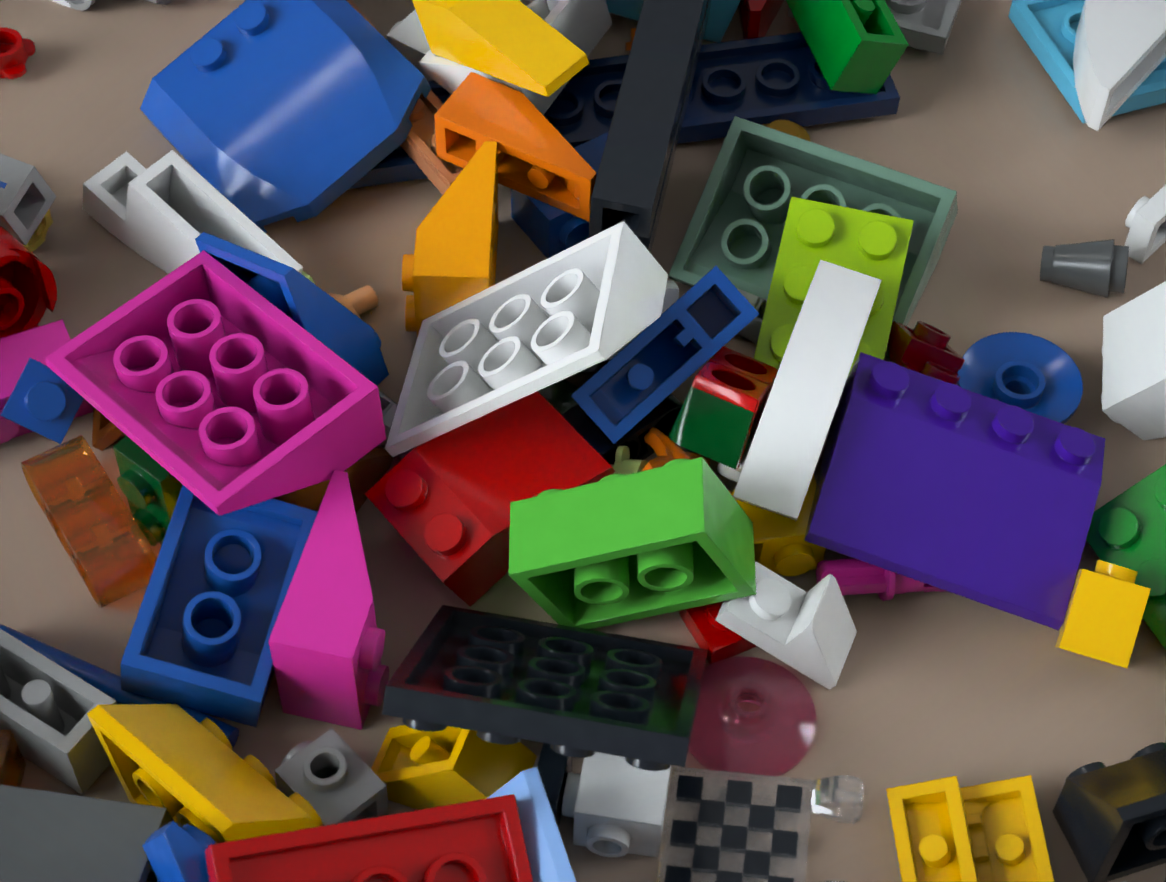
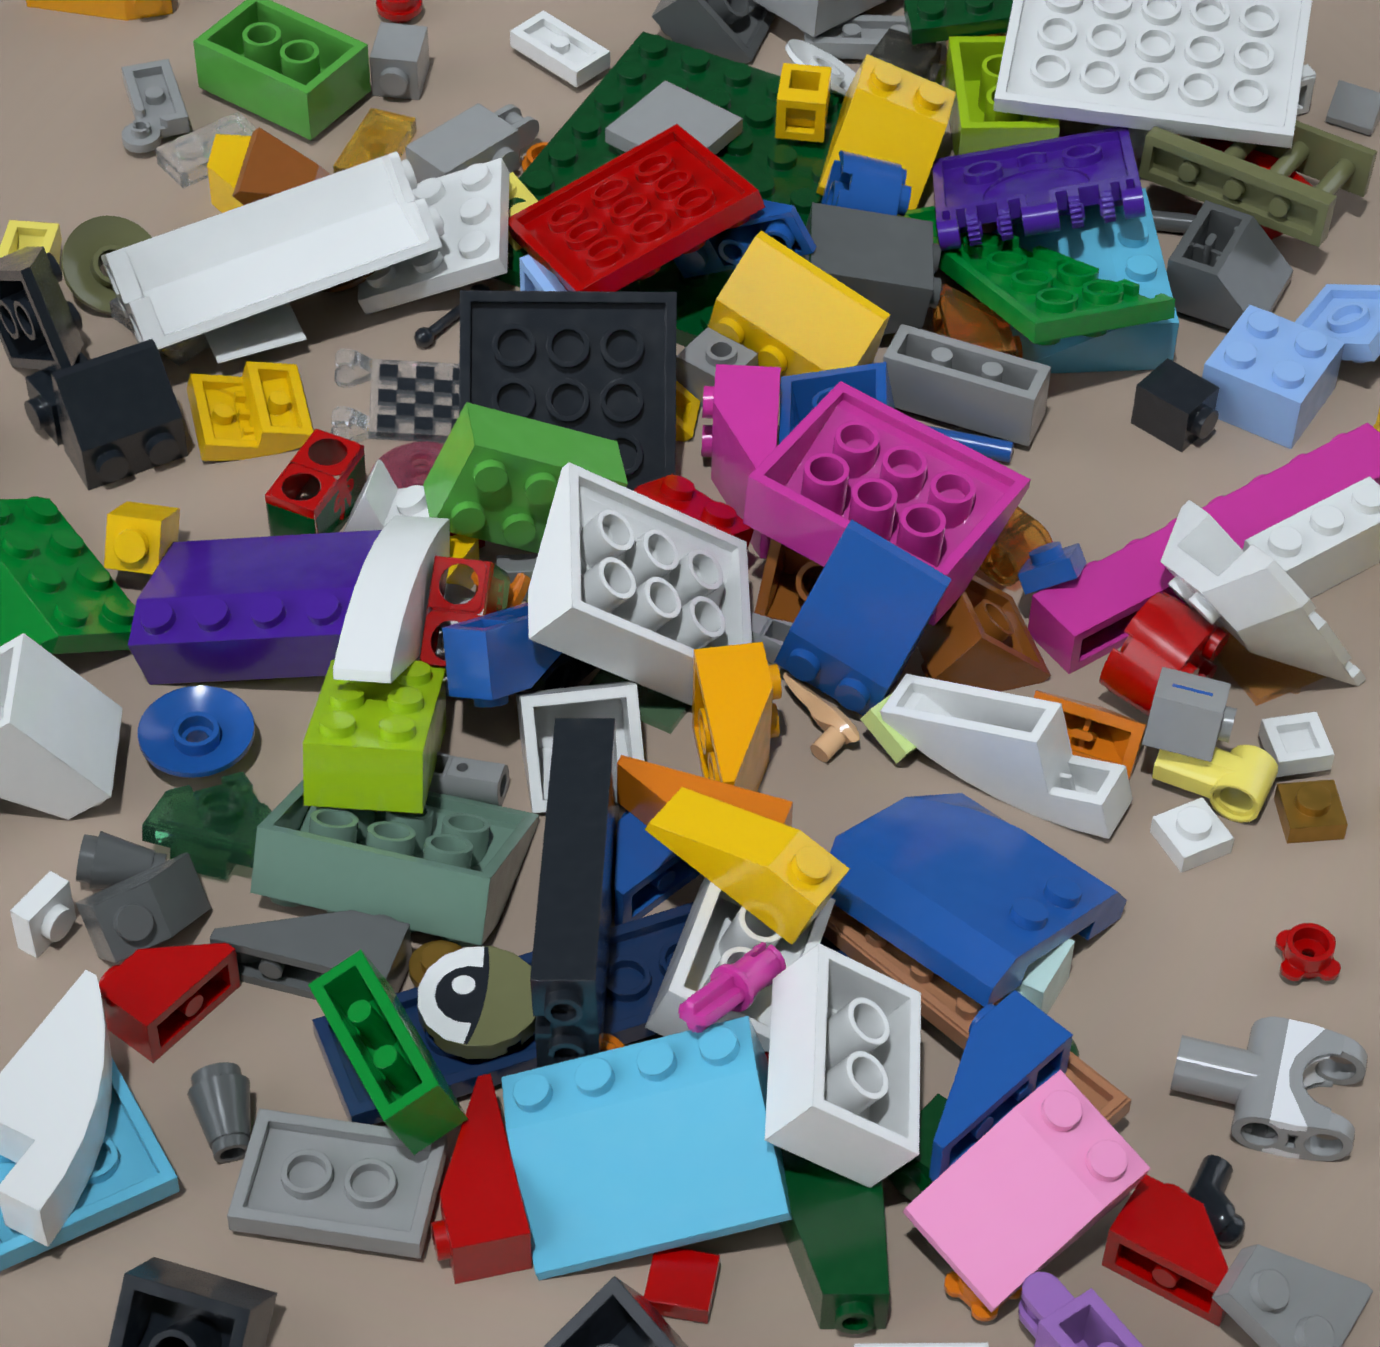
camera: 170 degrees right, 5 degrees down
(53, 163) = (1191, 834): none -> white plate
(88, 274) = (1100, 732): none -> orange slope
(751, 75) = (477, 1002): none -> tile
(877, 726) = (322, 457): none -> red piece
(904, 144) = (300, 949): none -> dark grey slope
(924, 351) = (282, 715): dark red slope -> none
(976, 55) = (223, 1109): none -> dark grey cone
(994, 288) = (209, 824): none -> clear green plate
(1033, 141) = (166, 993): none -> red slope
(1062, 194) = (144, 909): none -> dark grey slope

